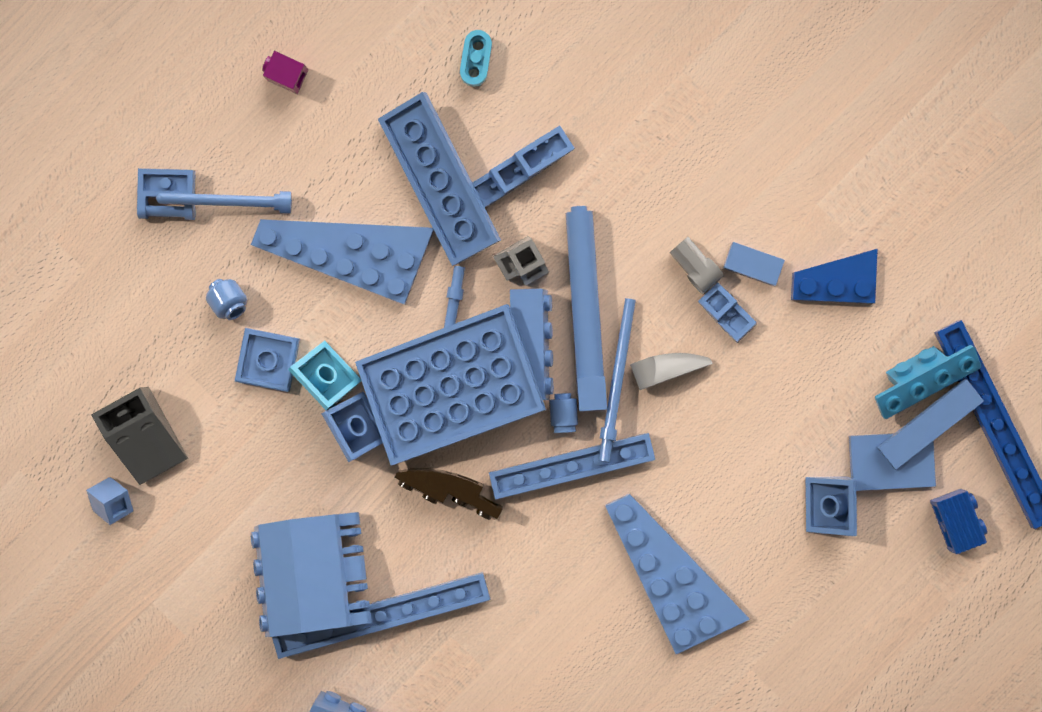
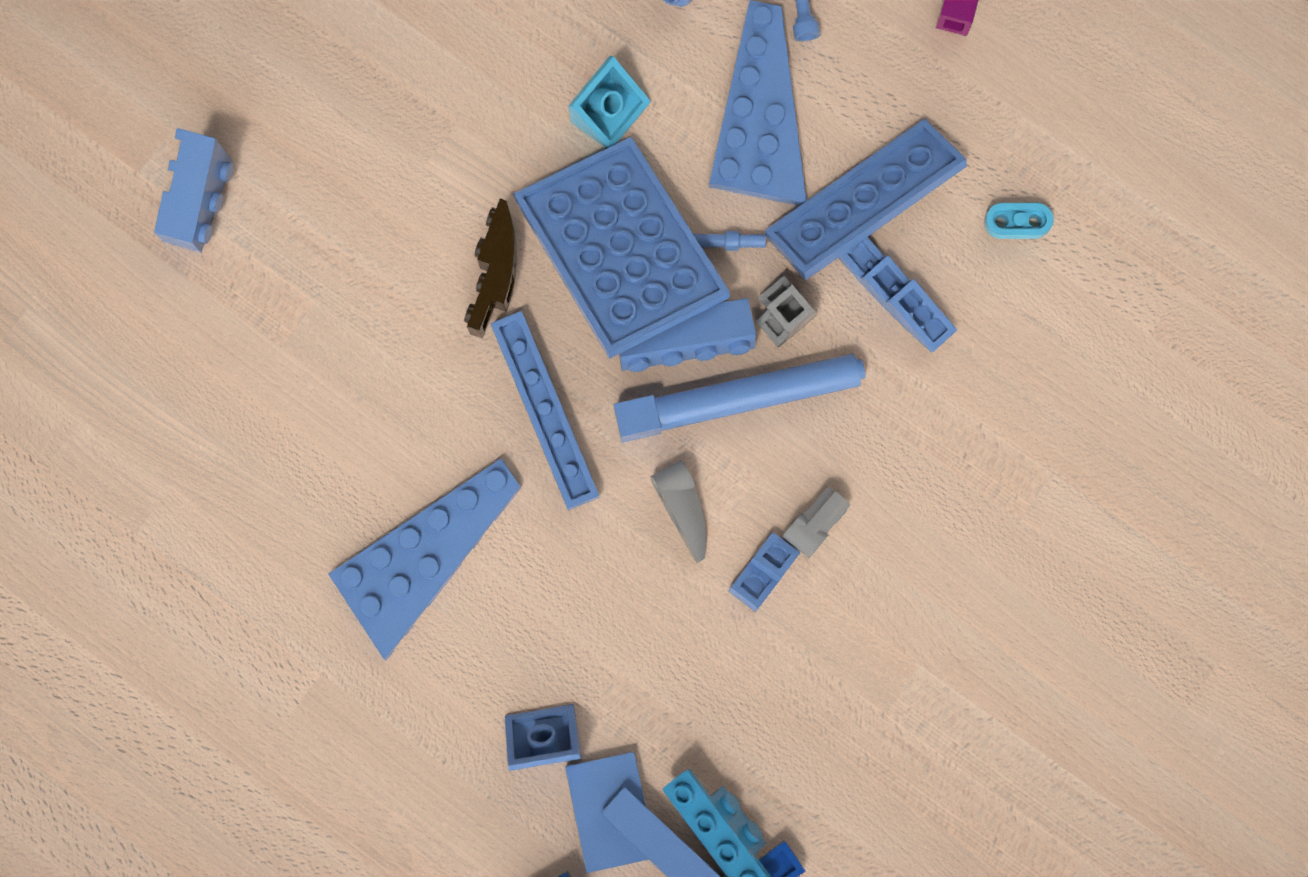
camera: 80 degrees right, 10 degrees down
(266, 359) = (617, 34): medium blue tile -> none
(307, 576) = (371, 117): medium blue hinge -> none
(353, 426) = (552, 143): medium blue slope -> none
(392, 613) = (332, 214): medium blue plate -> none
(563, 413) = (607, 389): medium blue brick -> none
(608, 432) = (592, 445): medium blue bar -> none
(753, 264) = (830, 595): medium blue tile -> none
(841, 280) = (827, 706): blue wing -> none

